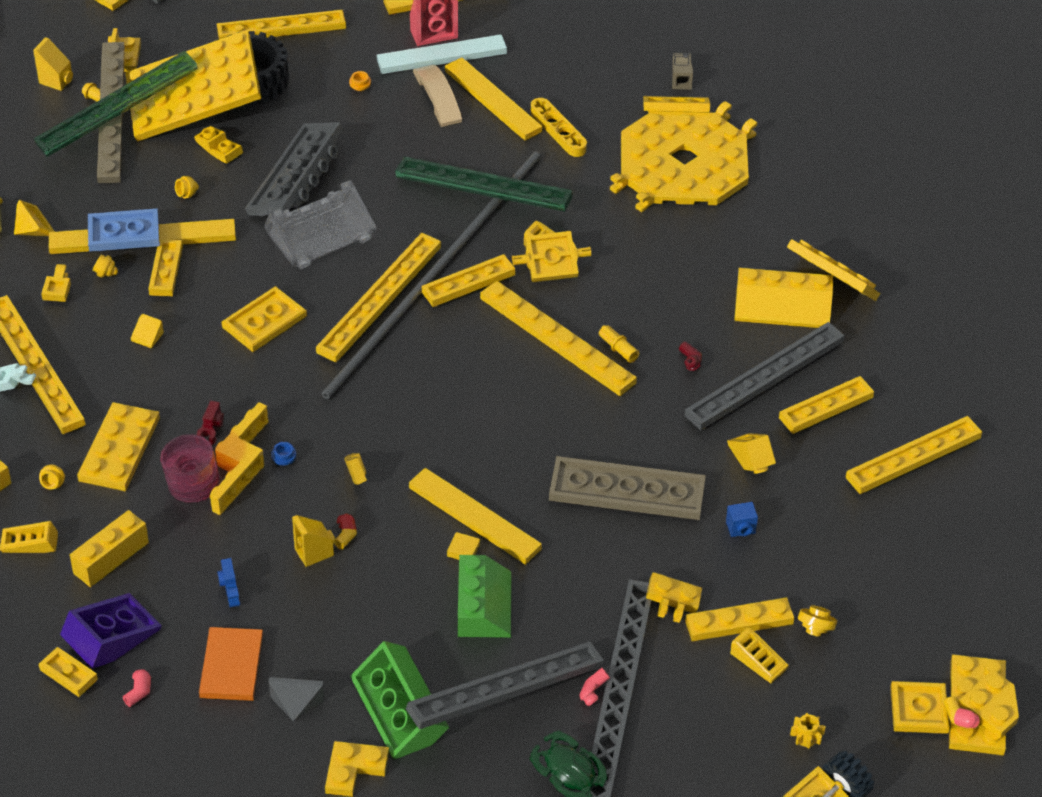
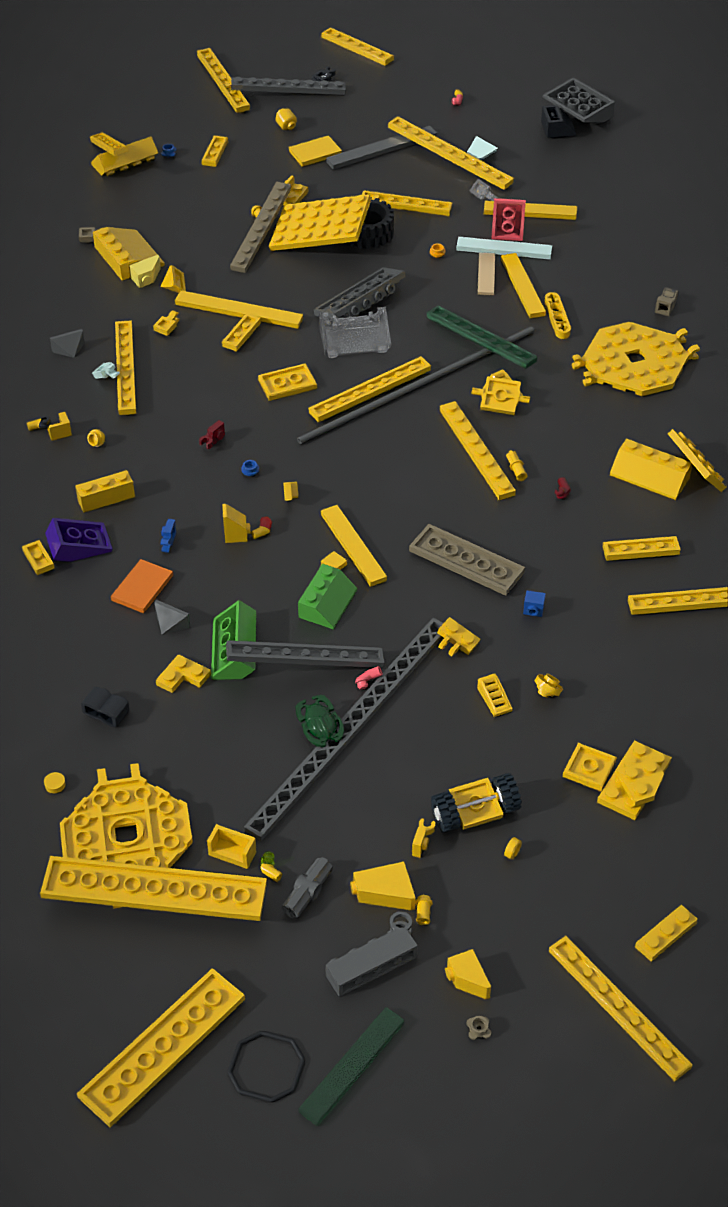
camera: 25 degrees right, 0 degrees up
(45, 540) = (68, 472): yellow slope -> none
(52, 65) = (239, 188): yellow slope -> none
(105, 266) = (203, 320): yellow plate -> none
(115, 103) = (263, 220): clear green plate -> none
(118, 446) = (149, 432): yellow plate -> none
(123, 230) = (225, 300): medium blue plate -> none
(141, 688) = (77, 582): coral arm -> none
(147, 331) = (207, 368): yellow slope -> none
(186, 187) = (283, 286): yellow plate -> none
(190, 468) = (181, 457): clear pink wheel -> none
(216, 144) = (320, 265): yellow slope -> none
(239, 458) = (219, 462): yellow bracket -> none
(468, 280) = (436, 395): yellow plate -> none
(676, 104) = (649, 321): yellow plate -> none
(737, 618) = (503, 668): yellow plate -> none
(753, 452) = (568, 563): yellow slope -> none
(764, 376) = (608, 516): dark grey plate -> none
(807, 730) = (499, 754): yellow gear -> none
(960, 716) = (612, 781): coral arm -> none

